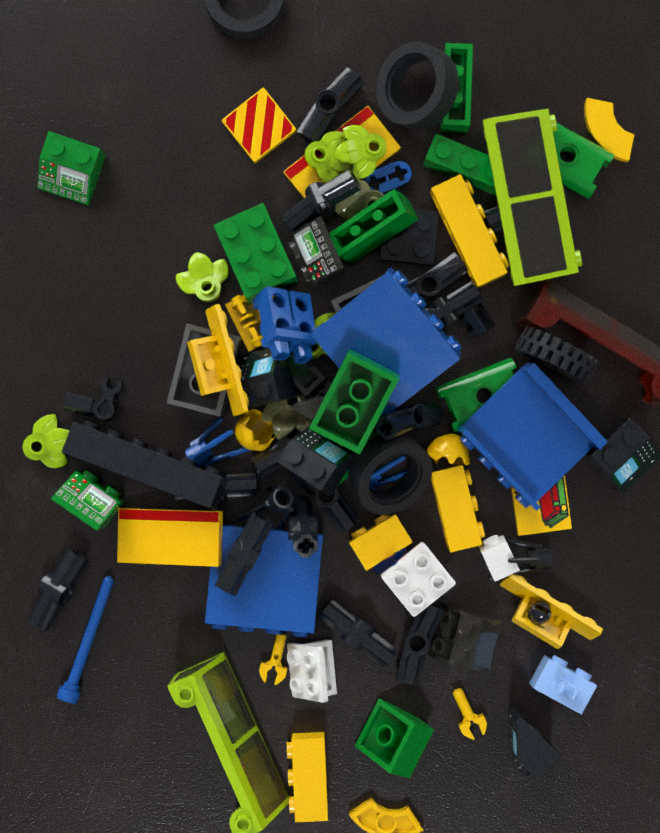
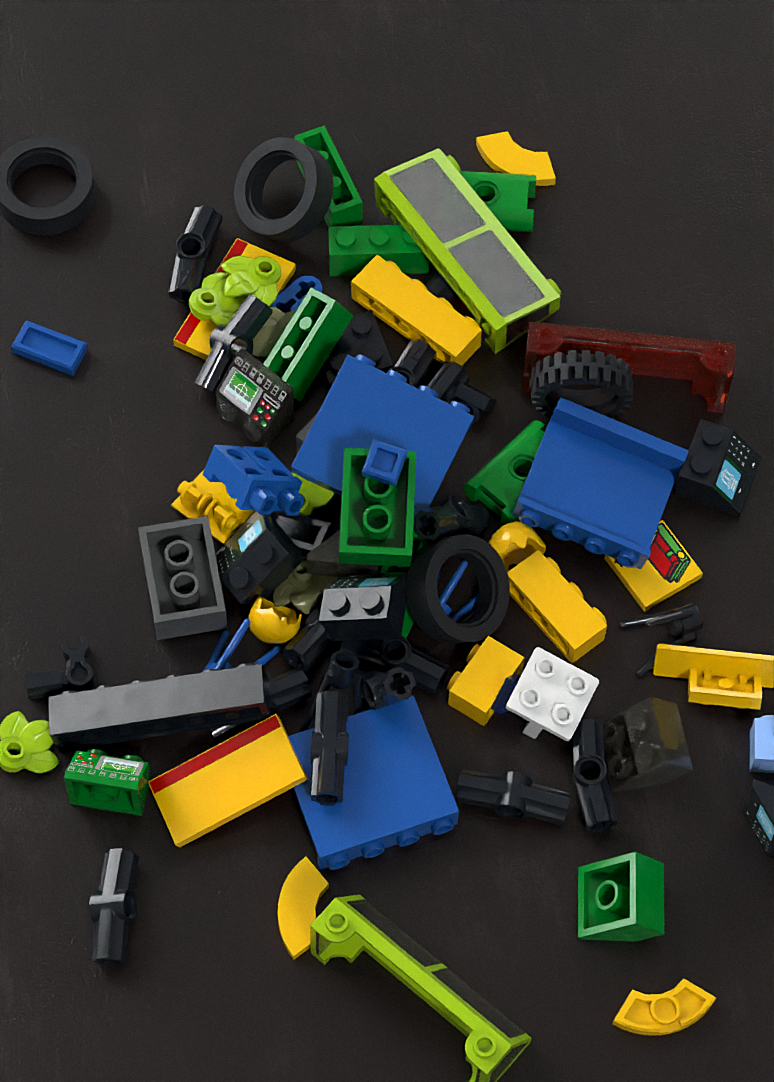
camera: 25 degrees left, 25 degrees down
(69, 690) = (185, 1027): blue piece -> none
(179, 642) = (298, 906): none -> yellow tile
(192, 135) = (49, 347): none -> blue tile
(203, 273) = (132, 487): lime plate -> none
(216, 363) = (197, 546): yellow bracket -> none
(255, 252) = (179, 428): green brick -> none
(259, 125) = (122, 307): tile -> none
(275, 660) = (428, 878): yellow bar -> none
(308, 777) = (539, 993): yellow brick -> none
(312, 670) = (476, 863): white bracket -> none
(370, 379) = (384, 462): none -> blue tile
(468, 715) = (698, 838): yellow bar -> none
(496, 555) = (633, 637): white brick -> none
(539, 617) = (715, 673): black hinge -> none

